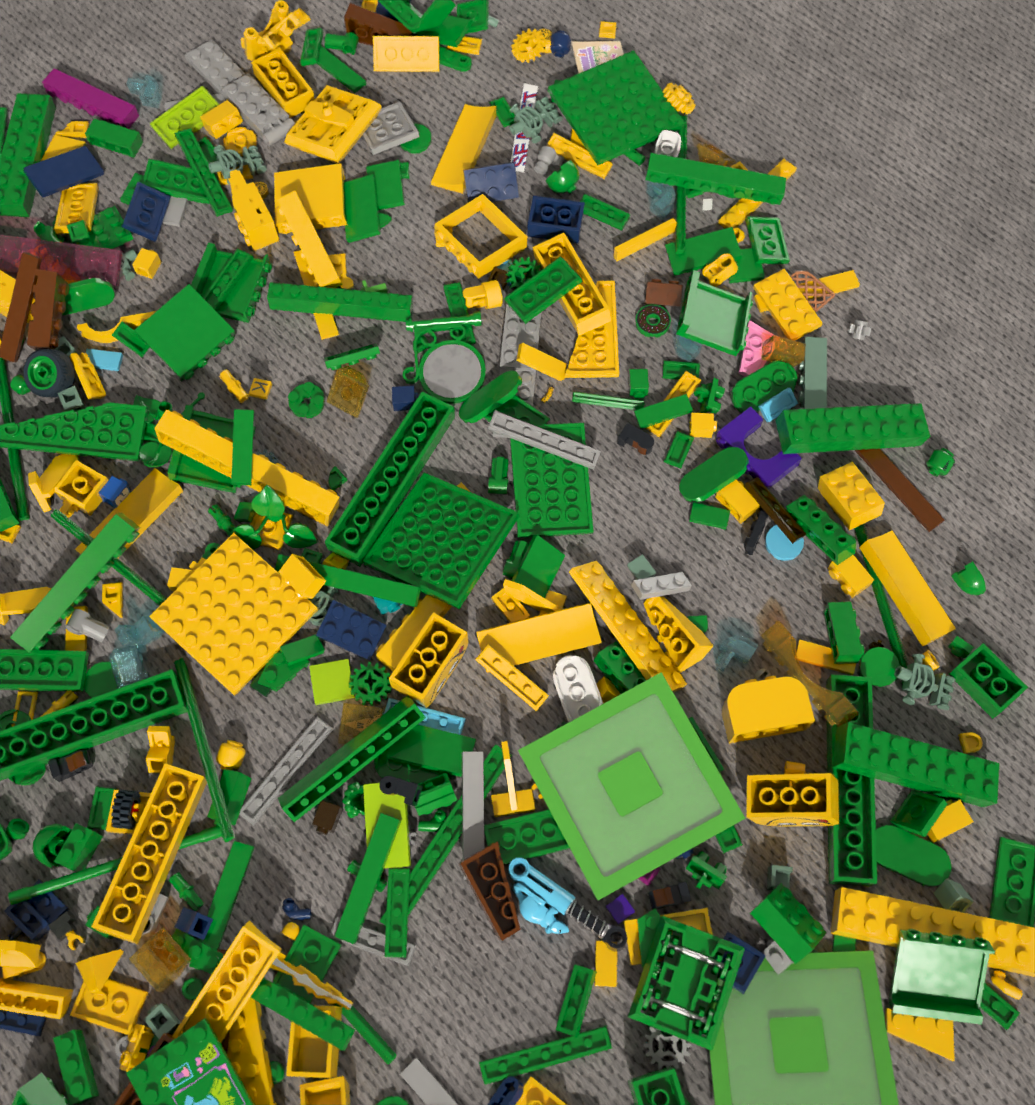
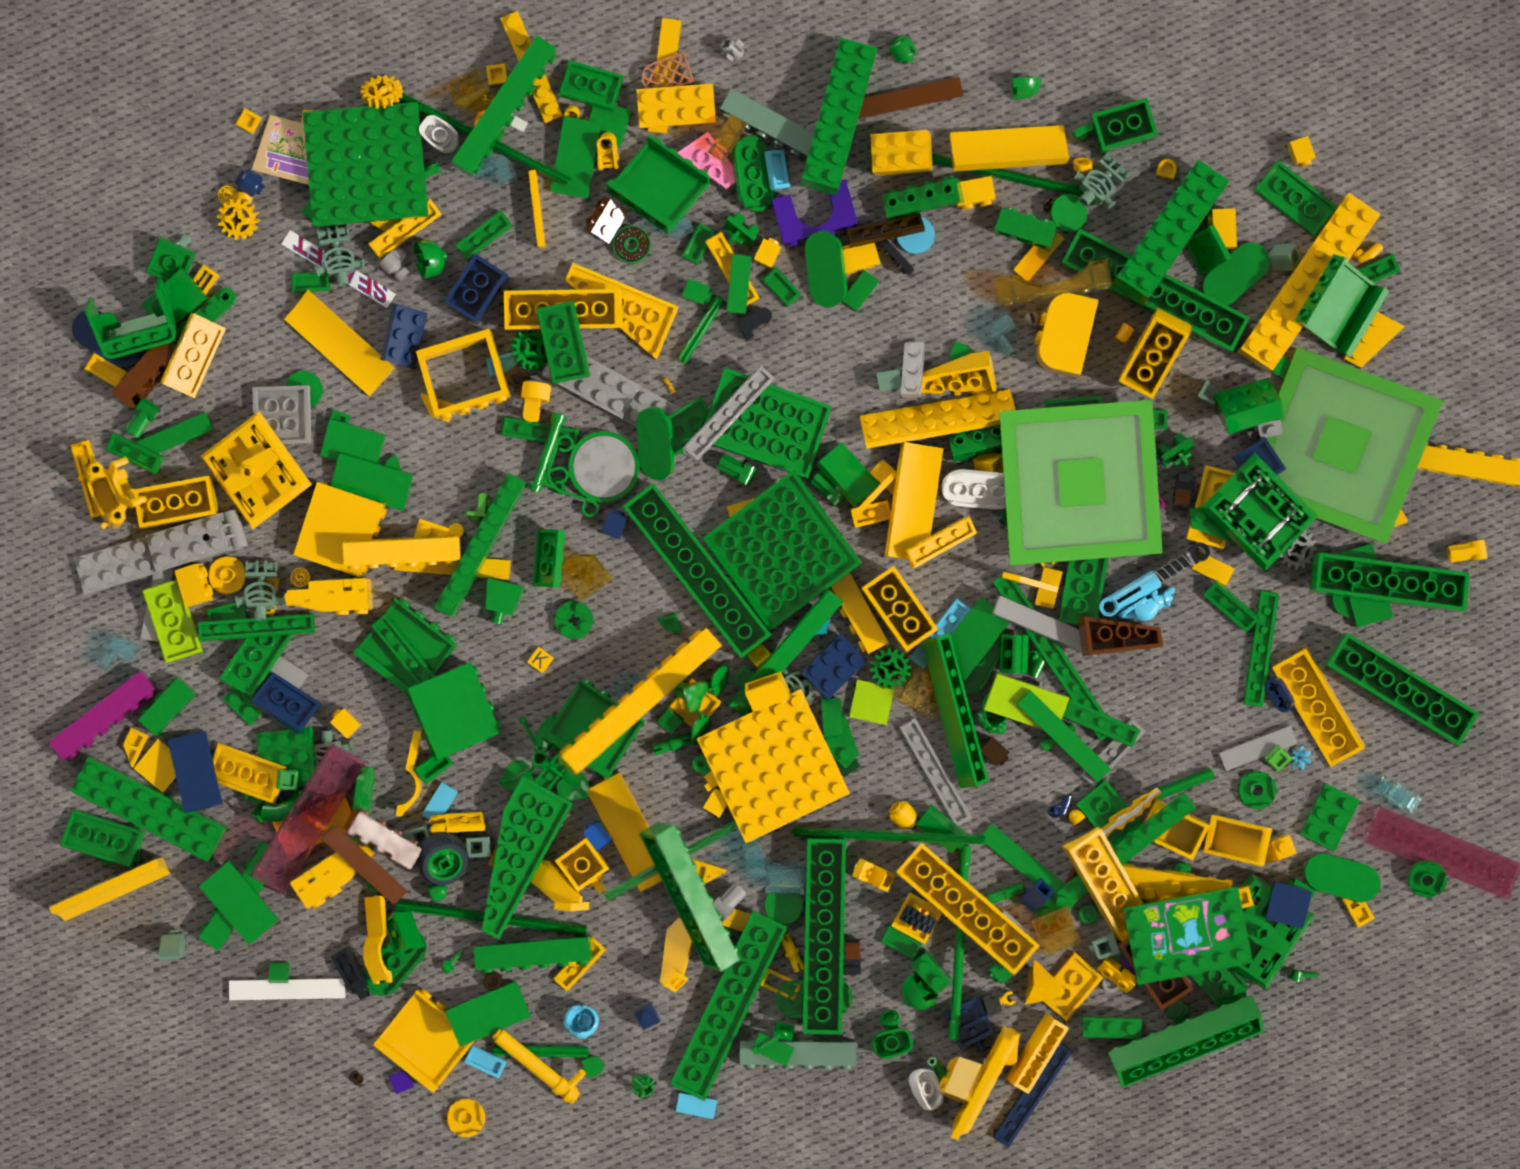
camera: 70 degrees left, 20 degrees up
(234, 386) = (527, 684): yellow pin -> none
(242, 447) = (627, 698): green tile -> none
(301, 337) = (502, 598): none -> green torso
(395, 786) = (1005, 678): black leg -> none
(541, 361) = (636, 377): yellow tile -> none
(620, 909) = (1174, 537): dark purple tile -> none

